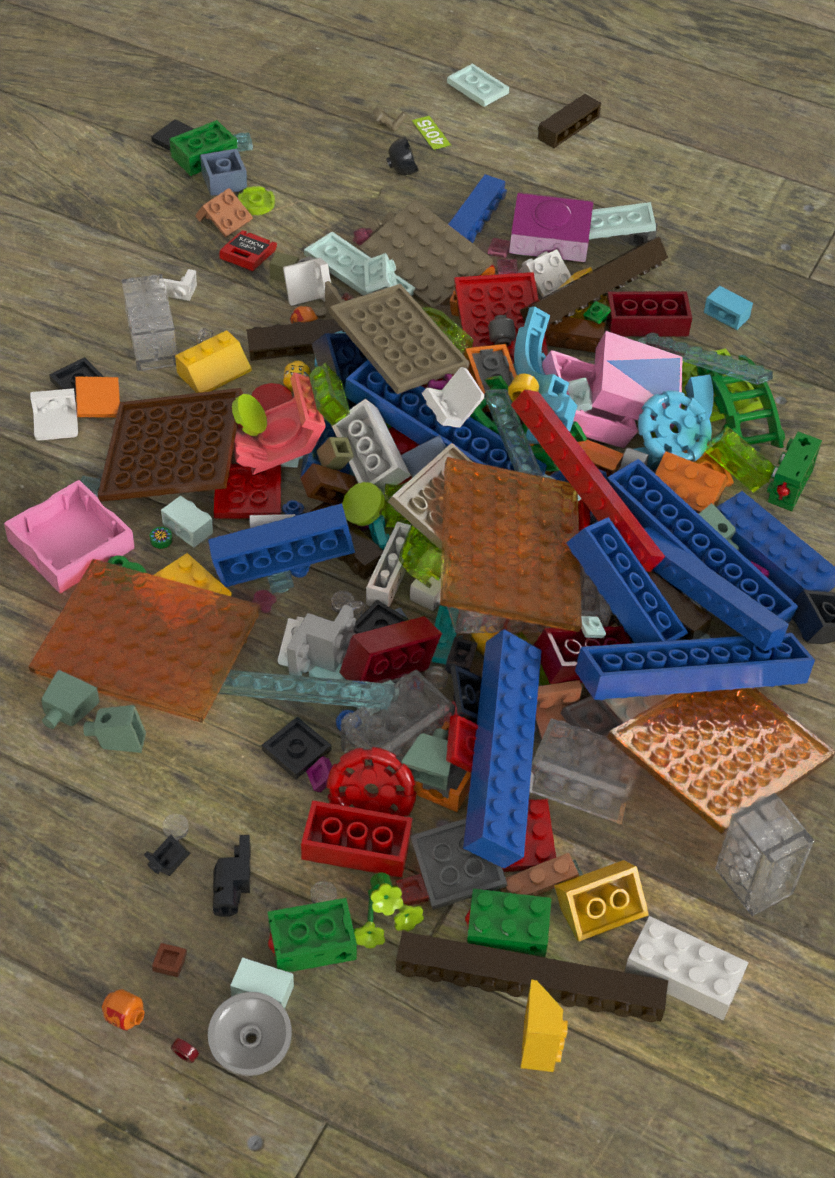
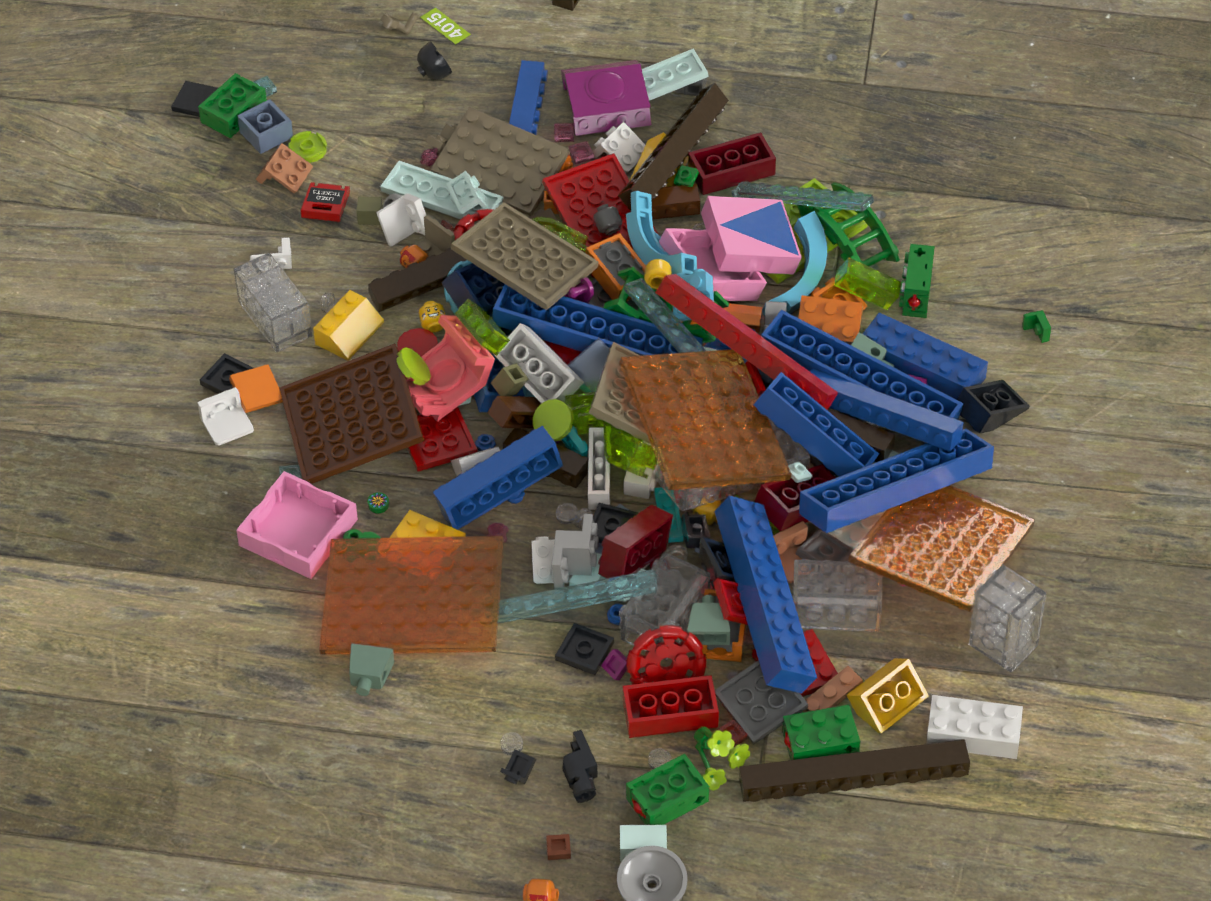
camera: 15 degrees left, 0 degrees up
(117, 729) = (426, 678): sand green torso -> none
(187, 521) = (396, 481): light aqua brick -> none
(280, 582) = (505, 511): clear light blue plate -> none
(455, 400) = (602, 300): white bracket -> none
(542, 1030) = (881, 804): yellow slope -> none
(581, 394) = (706, 261): light aqua bracket -> none
(684, 421) = (807, 262): medium azure plate -> none
(728, 307) = (802, 136): medium azure brick -> none

